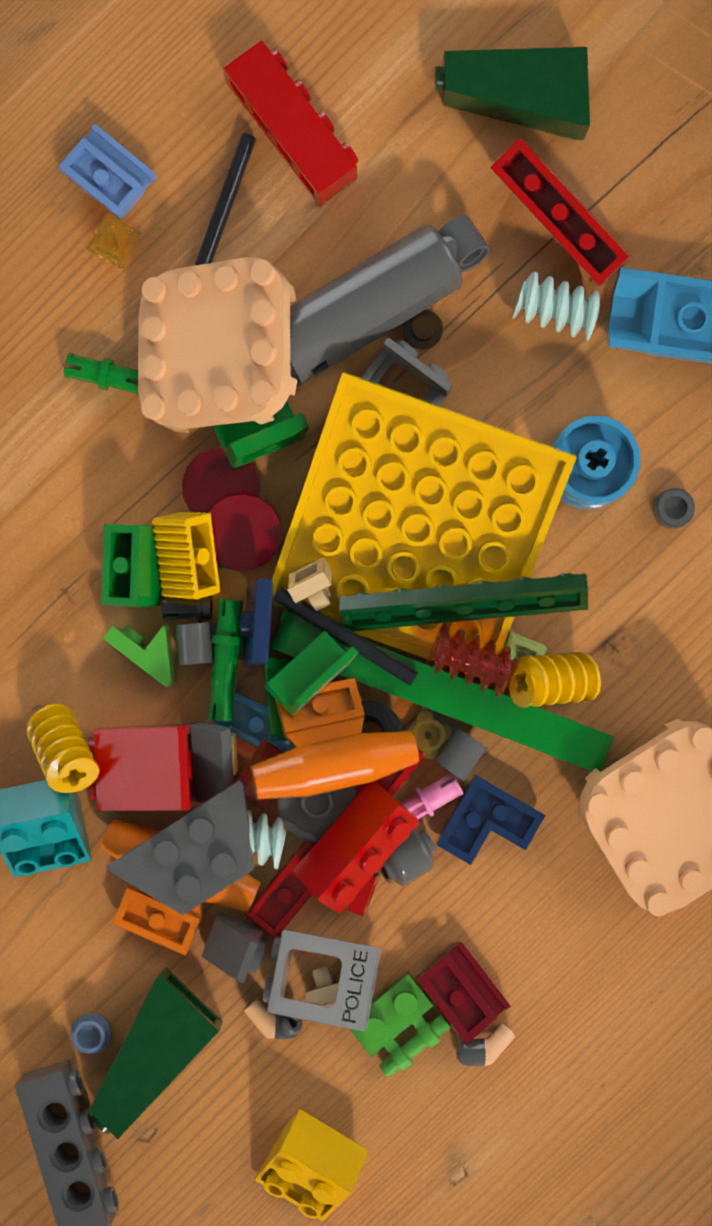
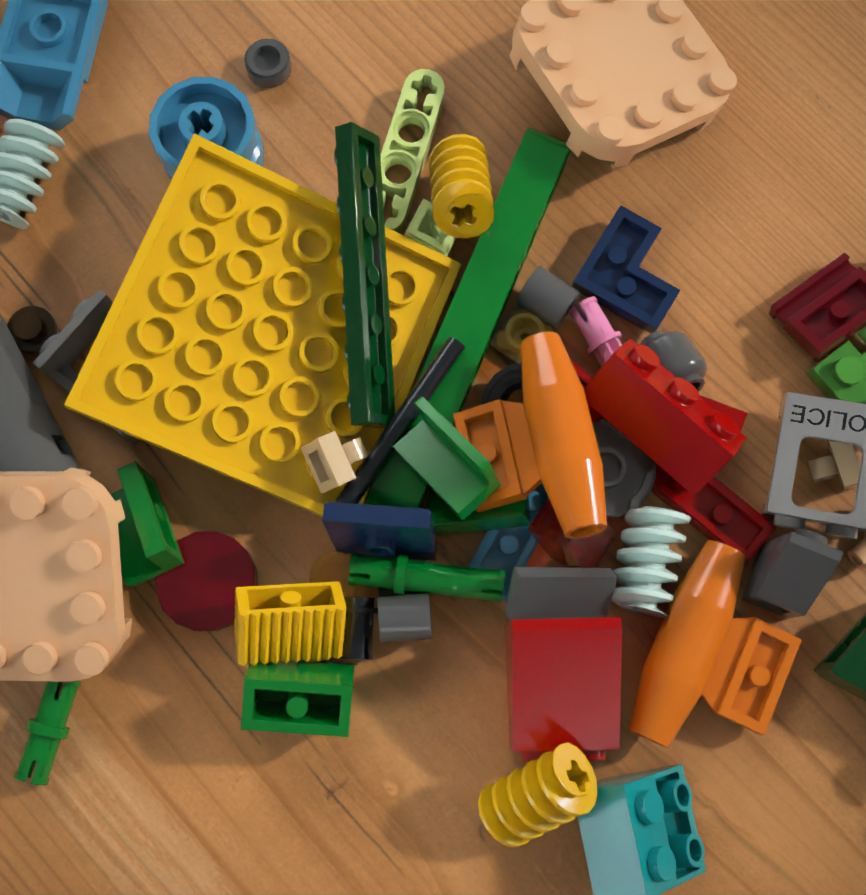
camera: 85 degrees left, 10 degrees down
(154, 659) = (423, 670): bright green slope -> none
(193, 854) = (677, 619): dark grey wing -> none
(245, 530) = (262, 548): dark red tile -> none
(472, 659) = (430, 271): clear red piece -> none
(590, 635) = (406, 153): none -> yellowish green beam

